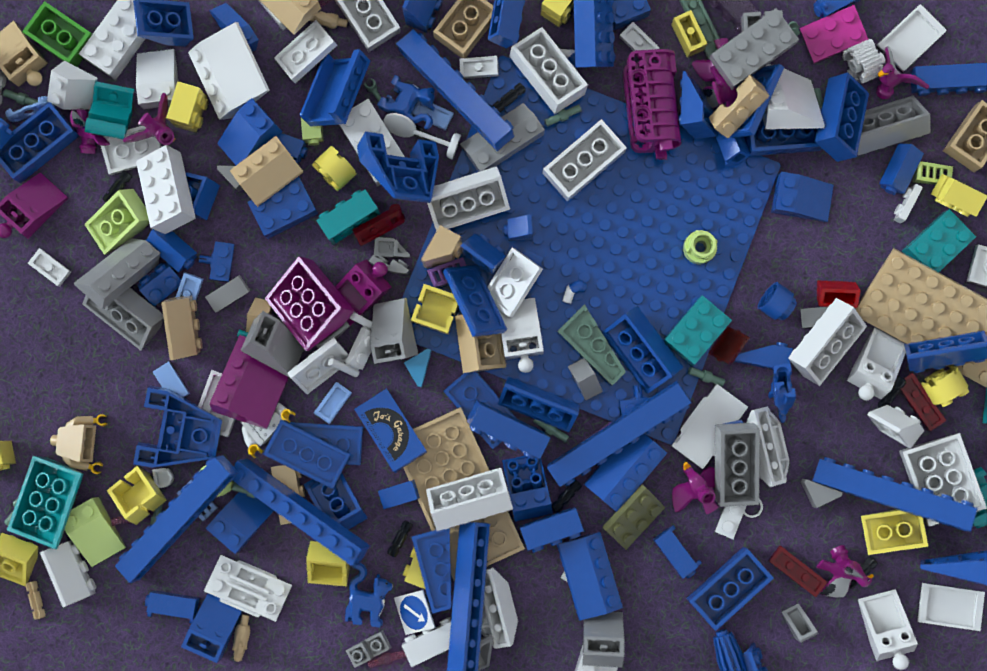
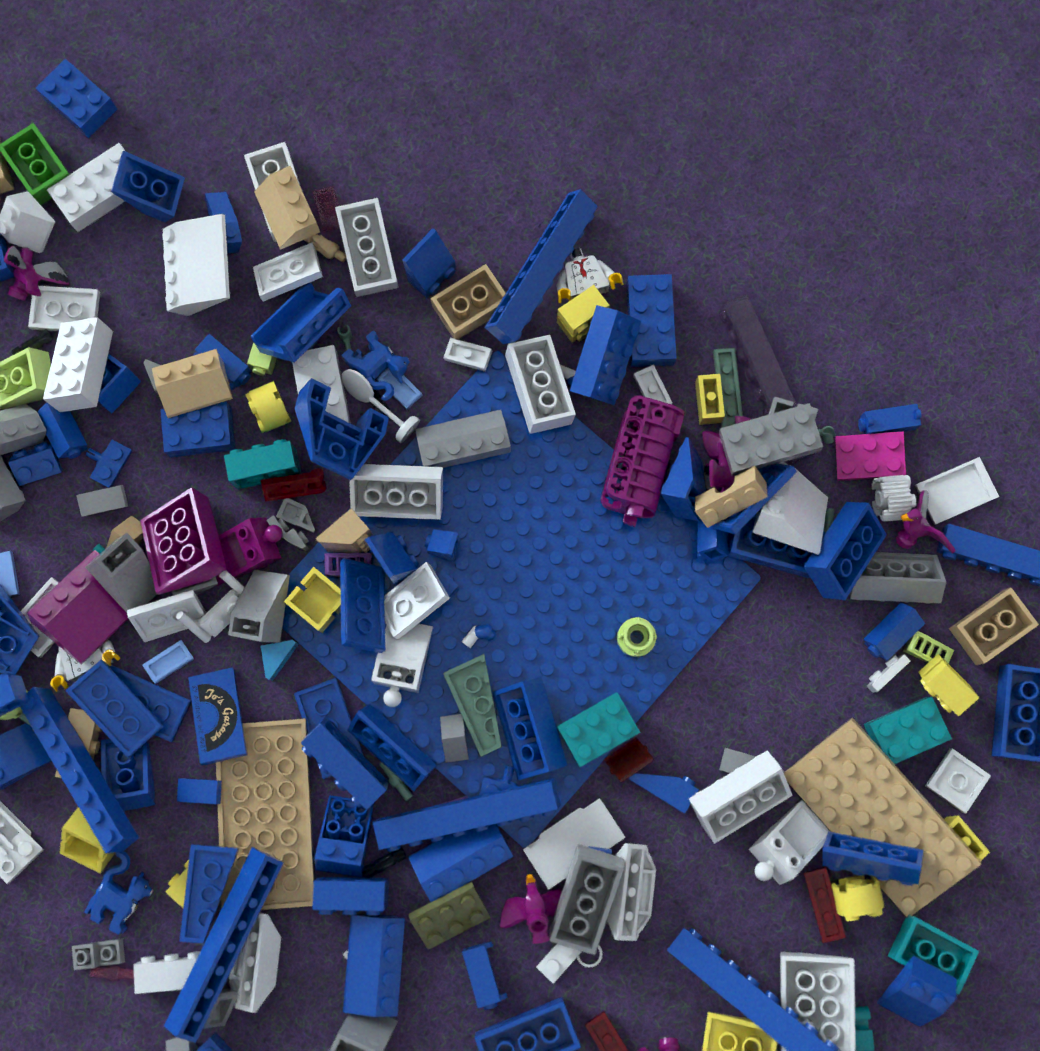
camera: 20 degrees right, 5 degrees down
(110, 110) = (55, 262): teal piece -> none
(155, 75) = (120, 246): white slope -> none
(156, 126) = (95, 294): magenta animal -> none
(181, 327) = (35, 518): tan slope -> none
(187, 107) = (138, 286): light yellow piece -> none
(189, 286) = (59, 484): light blue plate -> none
(247, 132) = (191, 333): blue slope -> none
(399, 538) = (181, 841): black axle -> none
(414, 612) = (164, 932): piece -> none
(456, 90) = (430, 369): blue brick -> none
(468, 499) = (270, 826): white brick -> none
(479, 352) = (348, 665): tan slope -> none
(509, 97) = (487, 398): black axle -> none
(562, 115) = (539, 438): sand green bar -> none
(584, 160) = (542, 495): white brick -> none
(706, 376) = (591, 785): sand green bar -> none
(777, 302) = (701, 731): blue piece -> none
(782, 390) = (669, 832): blue animal -> none
(802, 197) = (772, 623): blue slope -> none
(819, 494) = (670, 968): light grey slope -> none
(830, 290) = (780, 746): red brick -> none
(889, 398) = (804, 875): black axle -> none
(897, 425) = (786, 921): white slope -> none

